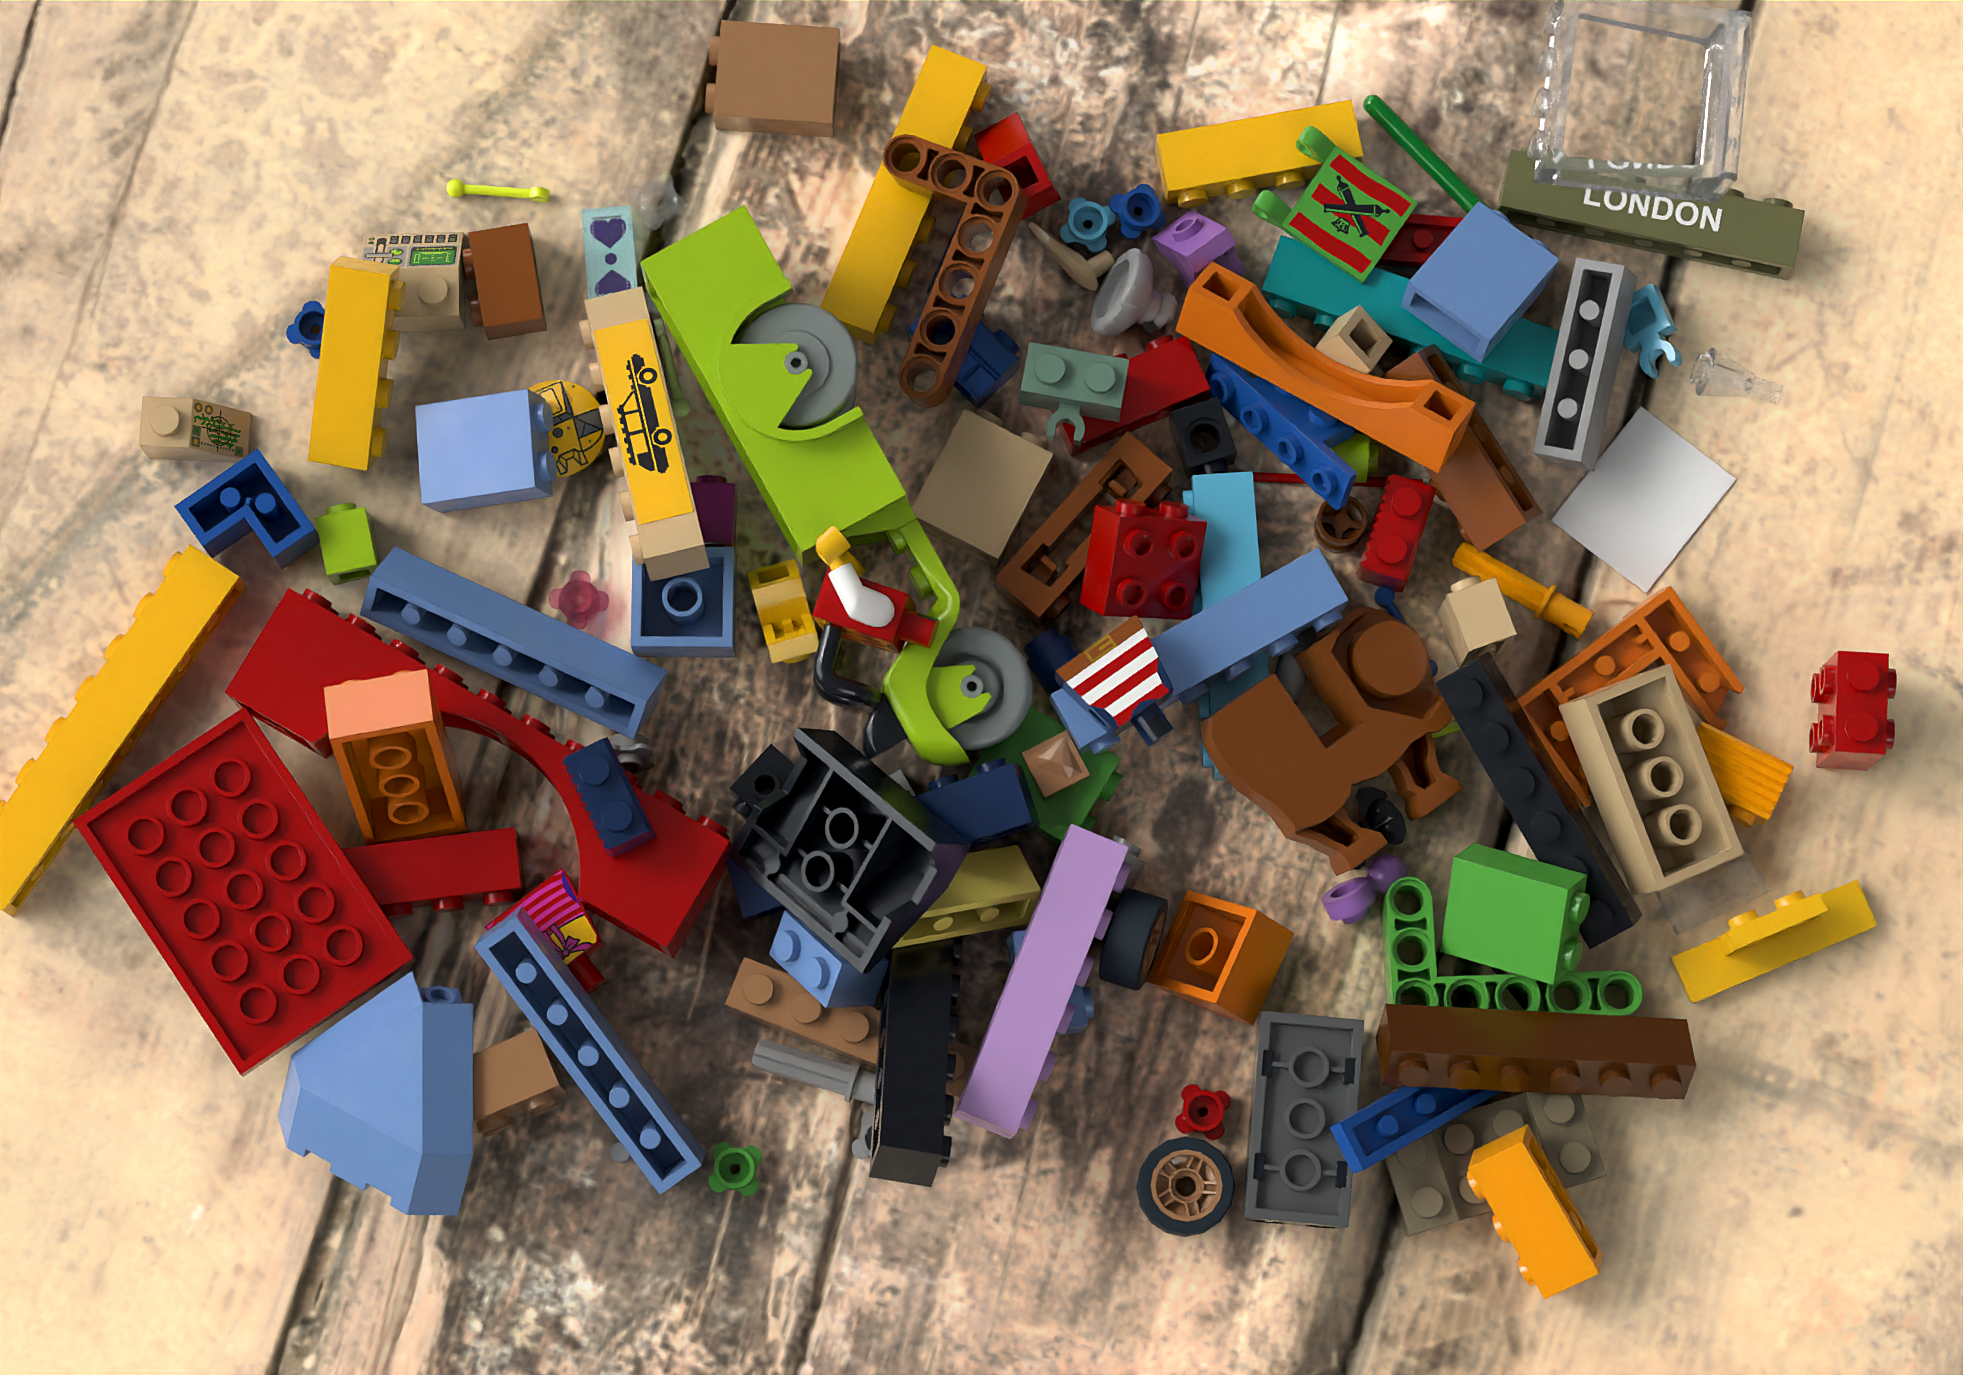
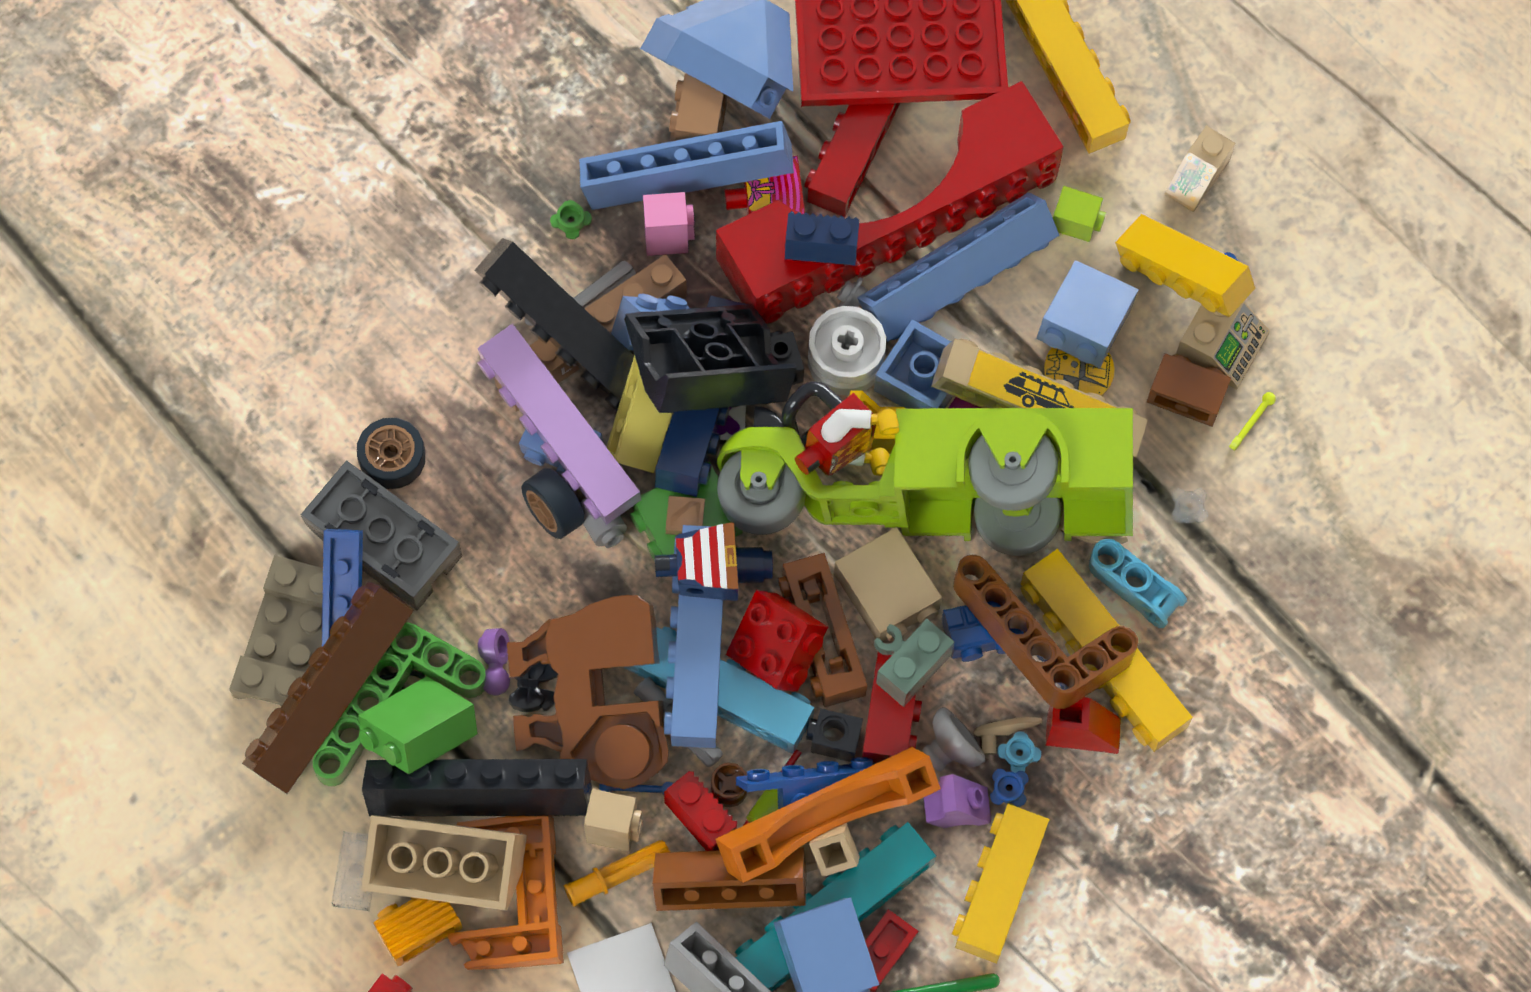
camera: 120 degrees right, 10 degrees down
(246, 500) = (1134, 173): blue brick -> none
(395, 757) = (923, 146): orange brick -> none
(579, 585) = (957, 329): clear pink plate -> none
(609, 250) = (1171, 461): clear light blue tile -> none
(679, 1030) = (667, 223): none -> bright pink brick
(706, 682) = (846, 349): none -> white wheel
(774, 78) = (1227, 618): medium nougat brick -> none
(802, 176) = (1145, 598): none -> medium azure piece
(1215, 1104) = (428, 480): red plate -> none
(1221, 956) = (509, 552): orange slope -> none
(1345, 210) = (926, 902): flag -> none
(1534, 1212) = (235, 631): light orange brick -> none
(1773, 940) = (299, 887): yellow bracket -> none

